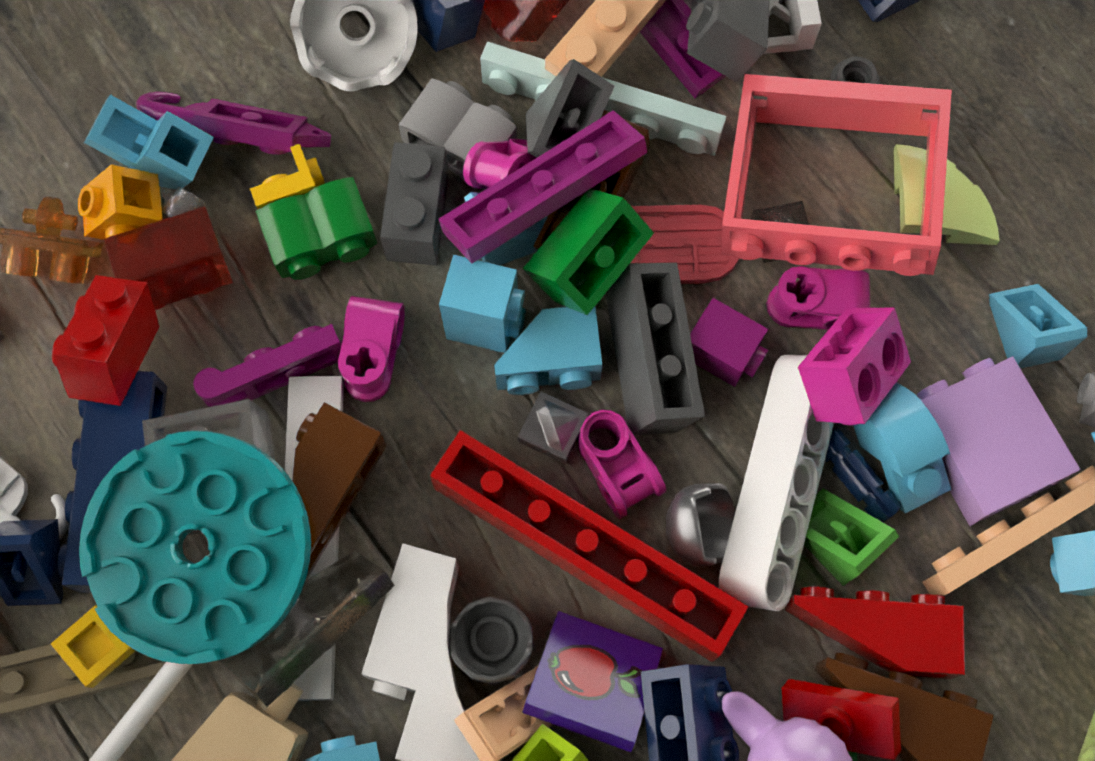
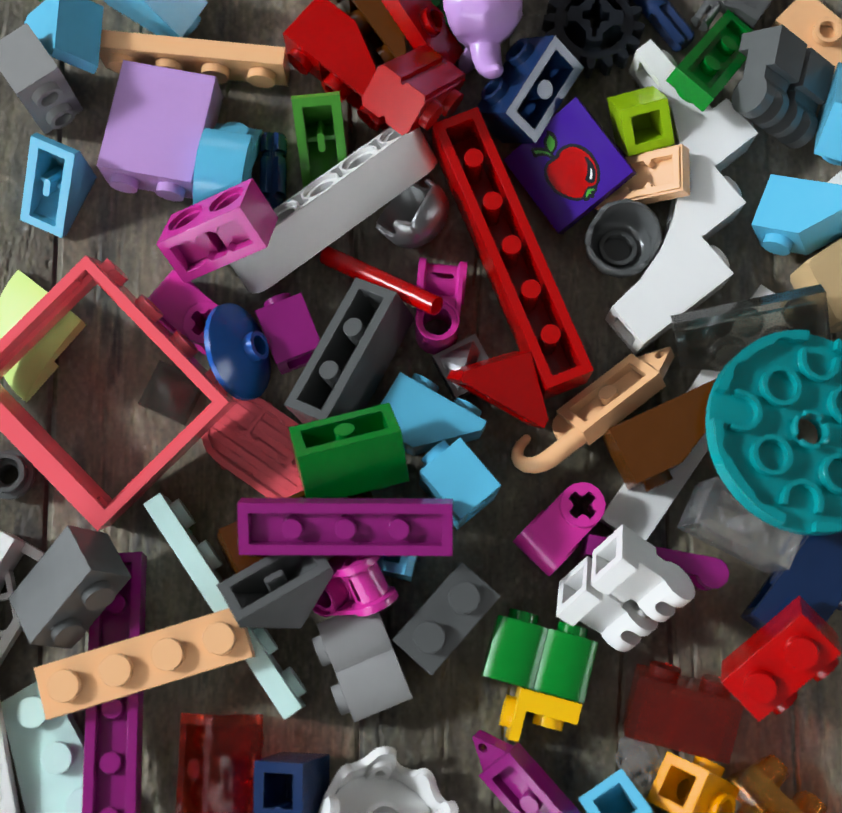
camera: 145 degrees left, 5 degrees up
(279, 314) = (623, 590): none -> white legs
(405, 469) = (598, 408): none -> light nougat plate
(507, 418) = (506, 383): none -> red slope
(680, 437) = (355, 268): none -> red bar
(755, 282) = (237, 351): none -> blue dish
(792, 627) = (414, 90): none -> red brick

